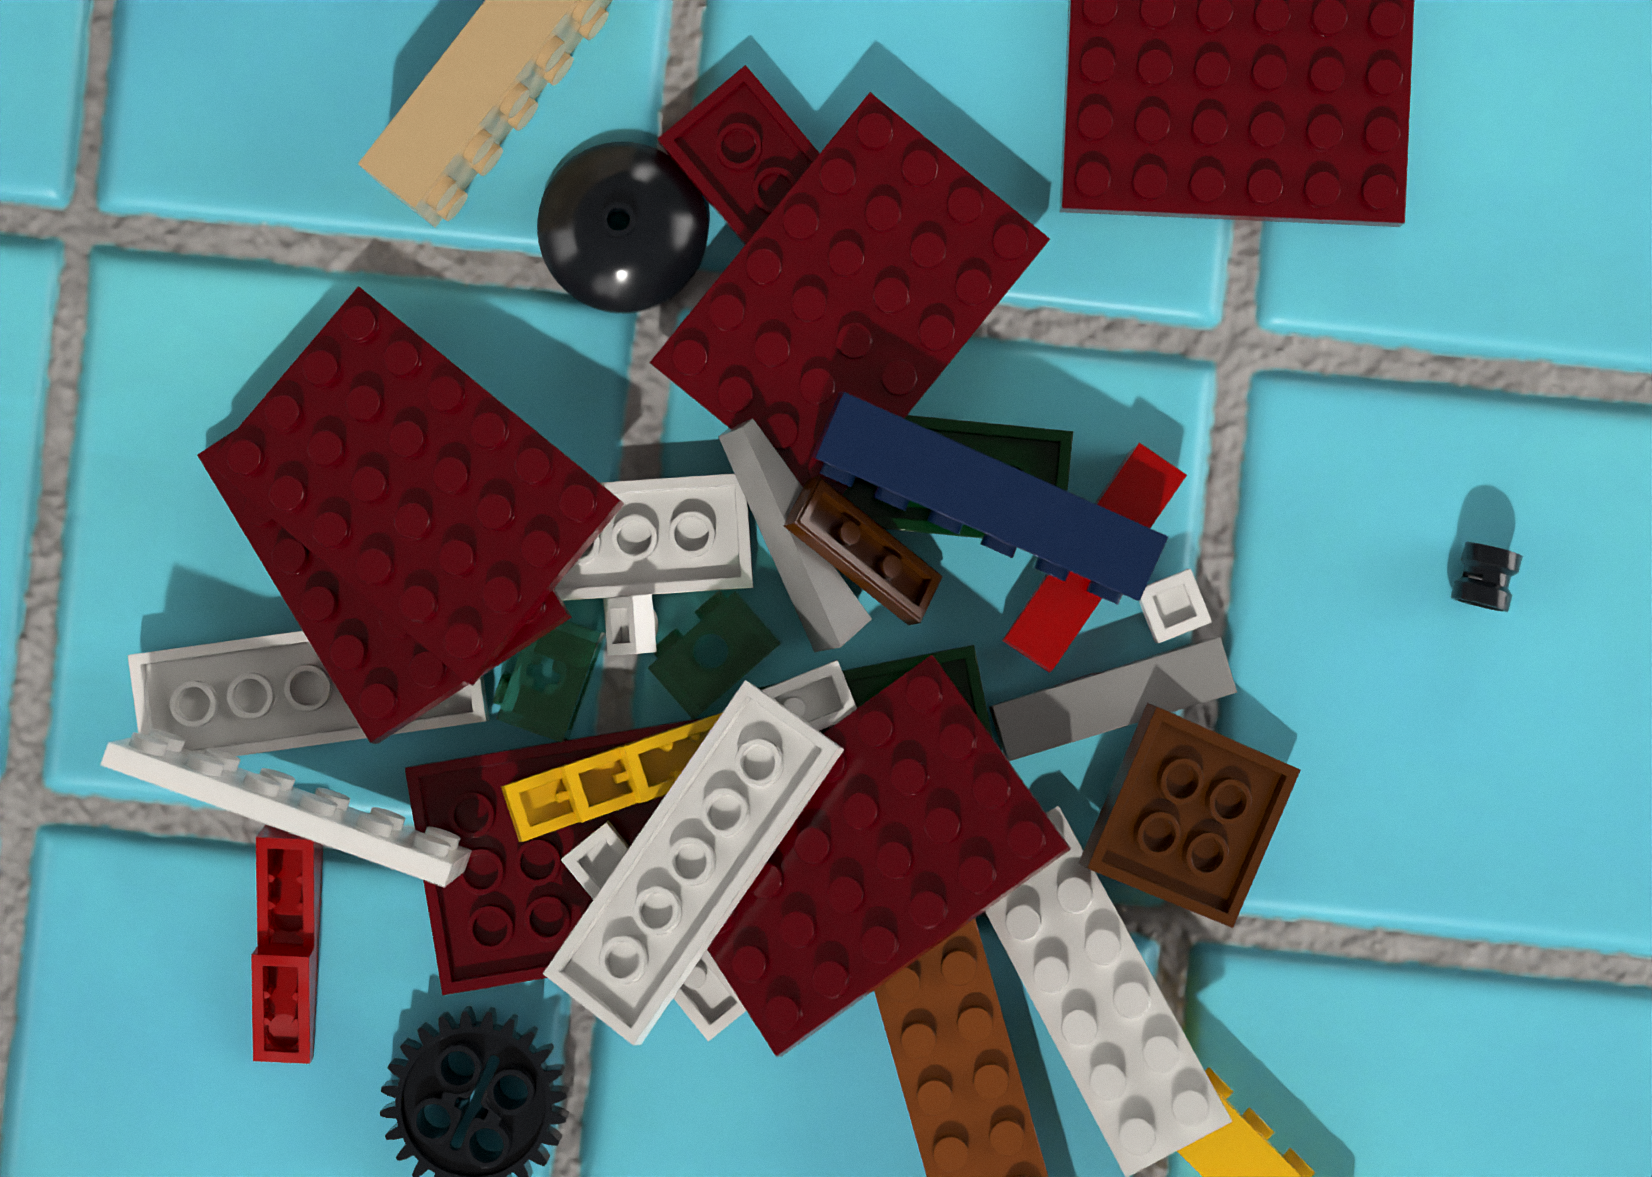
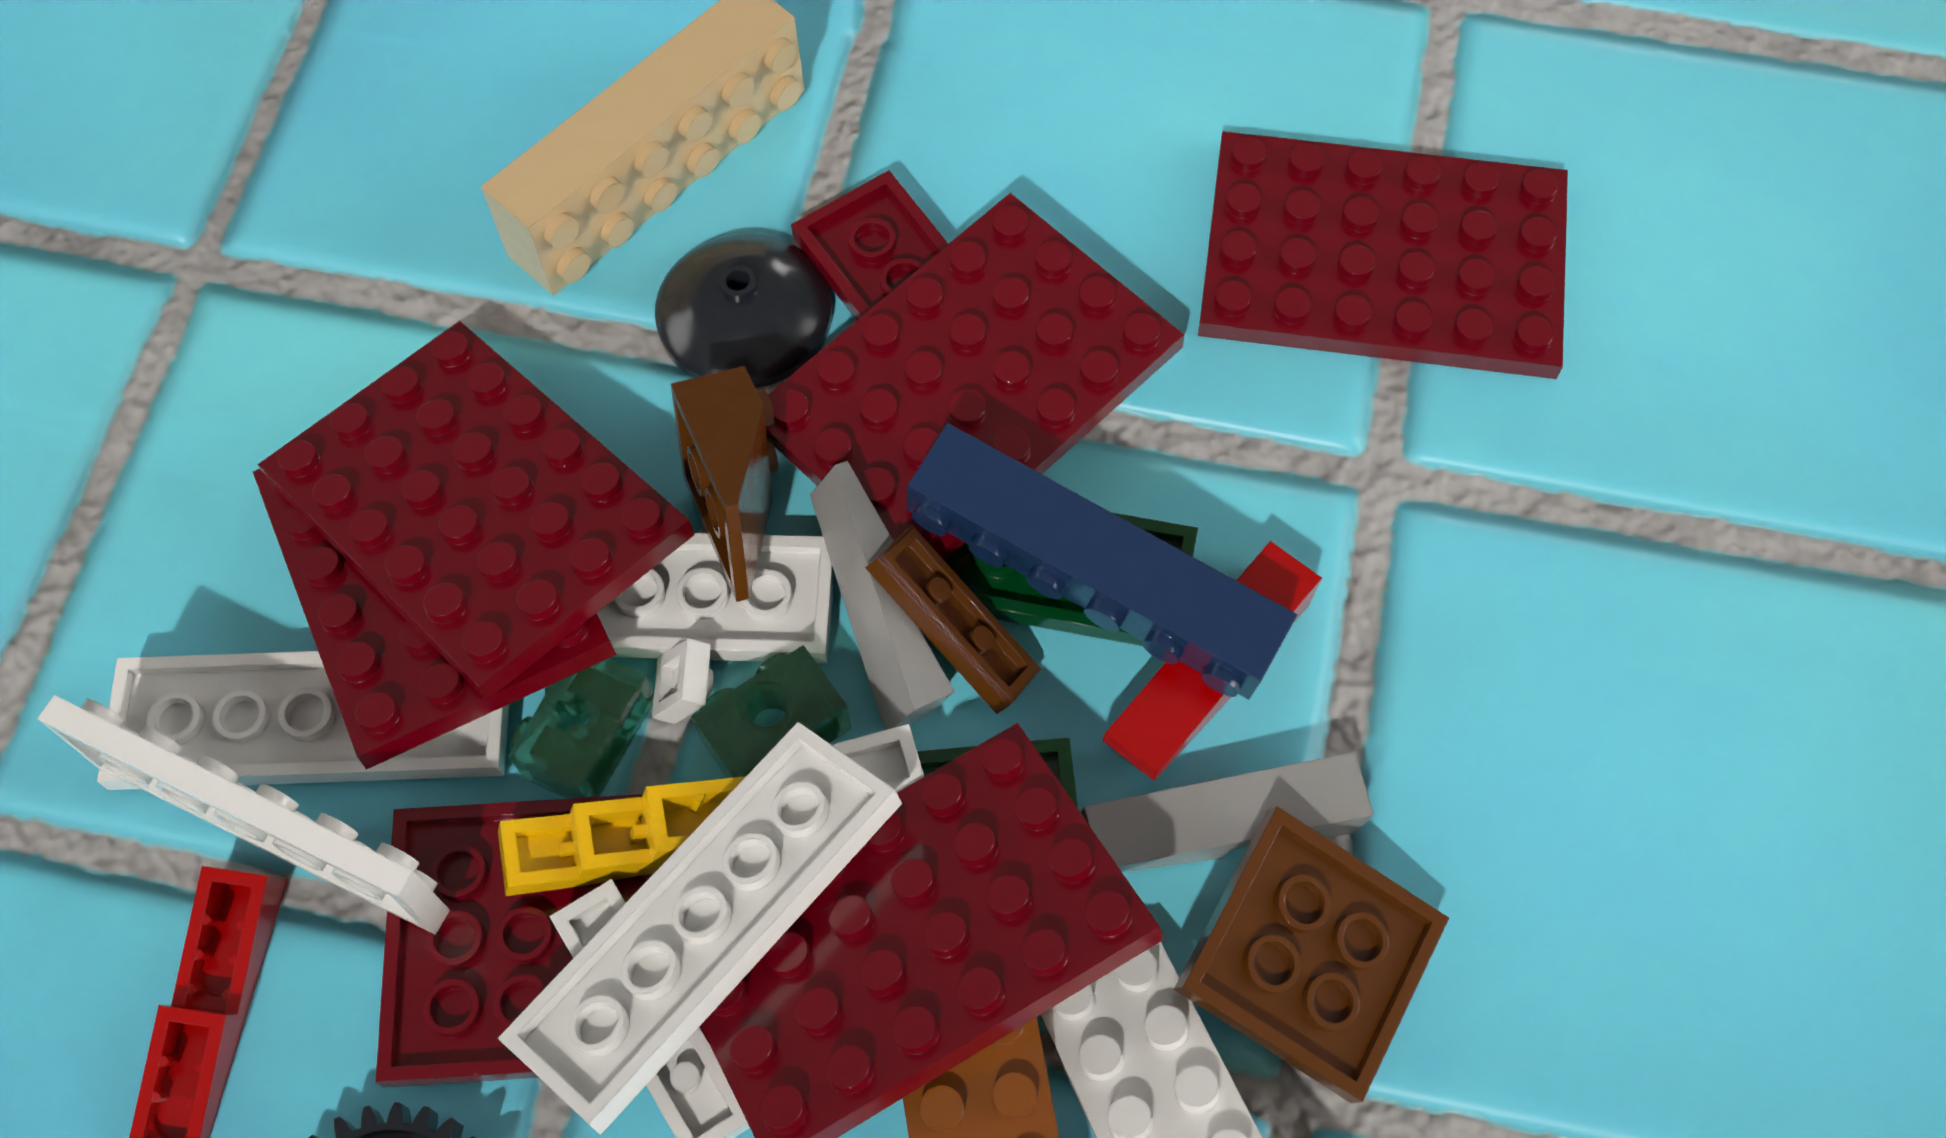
camera: 10 degrees right, 25 degrees down
(638, 413) = (728, 465): none -> reddish brown slope
(1174, 606) = (1301, 722): white plate -> none
(1486, 576) = (1666, 722): black wheel -> none

